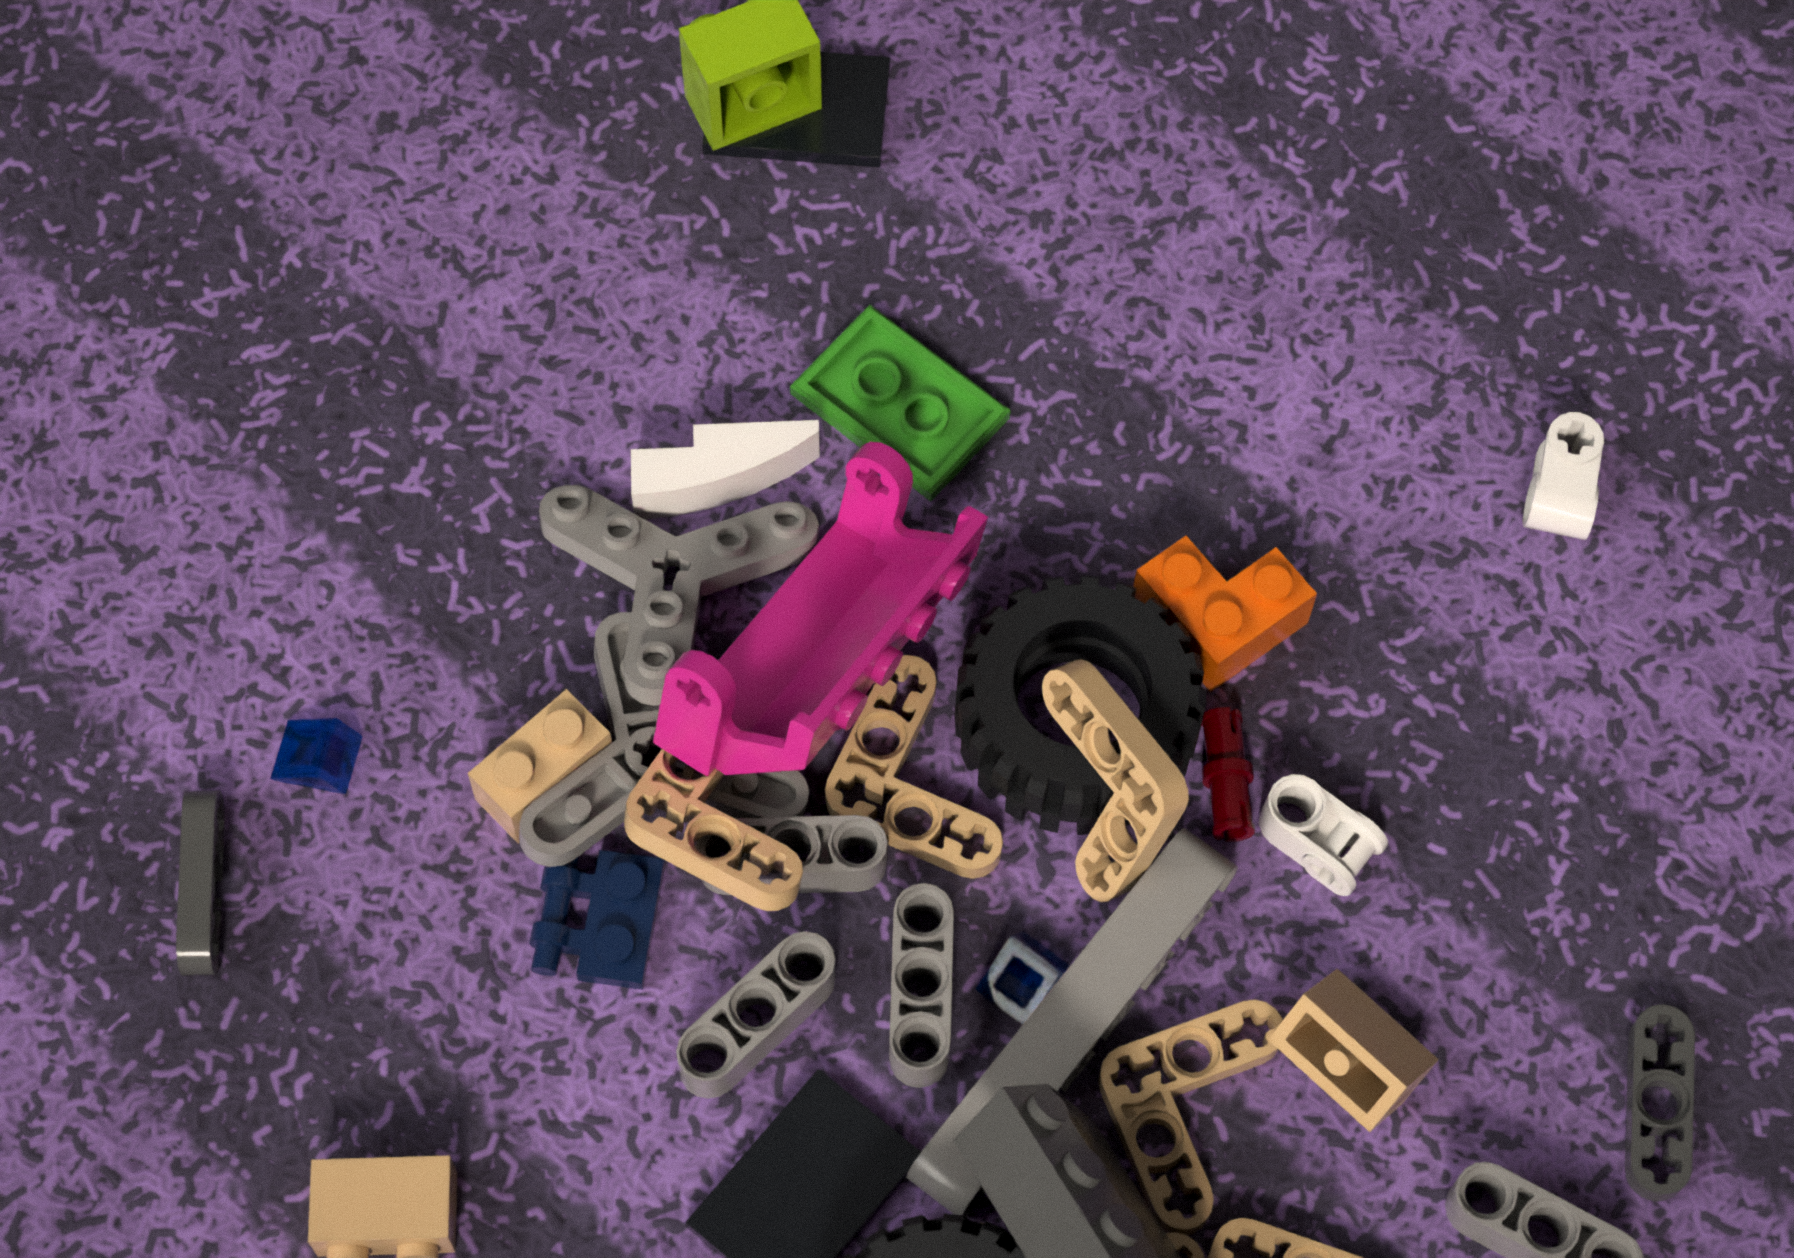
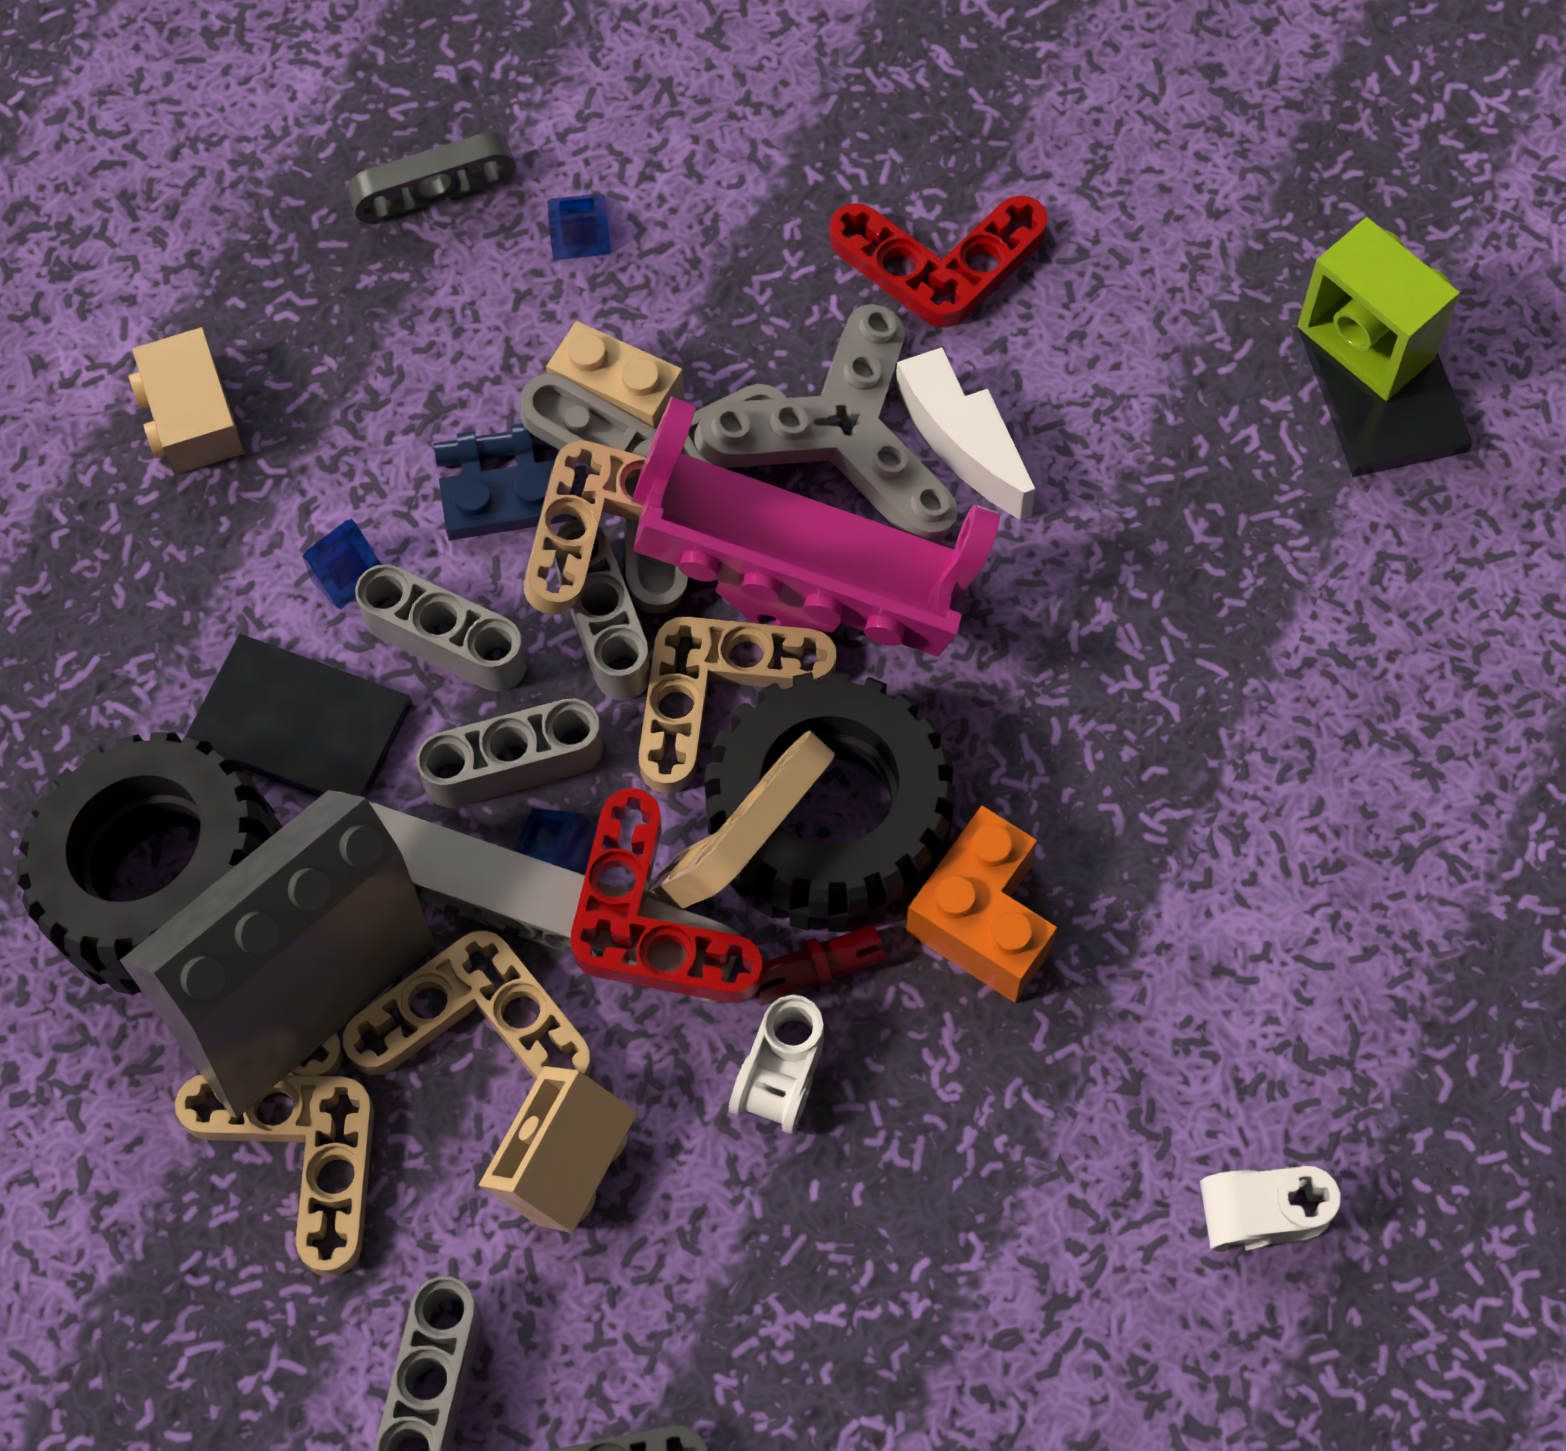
camera: 75 degrees right, 0 degrees up
(526, 423) = (945, 274): none -> red beam
(644, 1096) = (339, 562): none -> clear blue slope
(898, 392) = (1102, 568): bright green tile -> none
(1146, 914) = (623, 916): none -> red beam

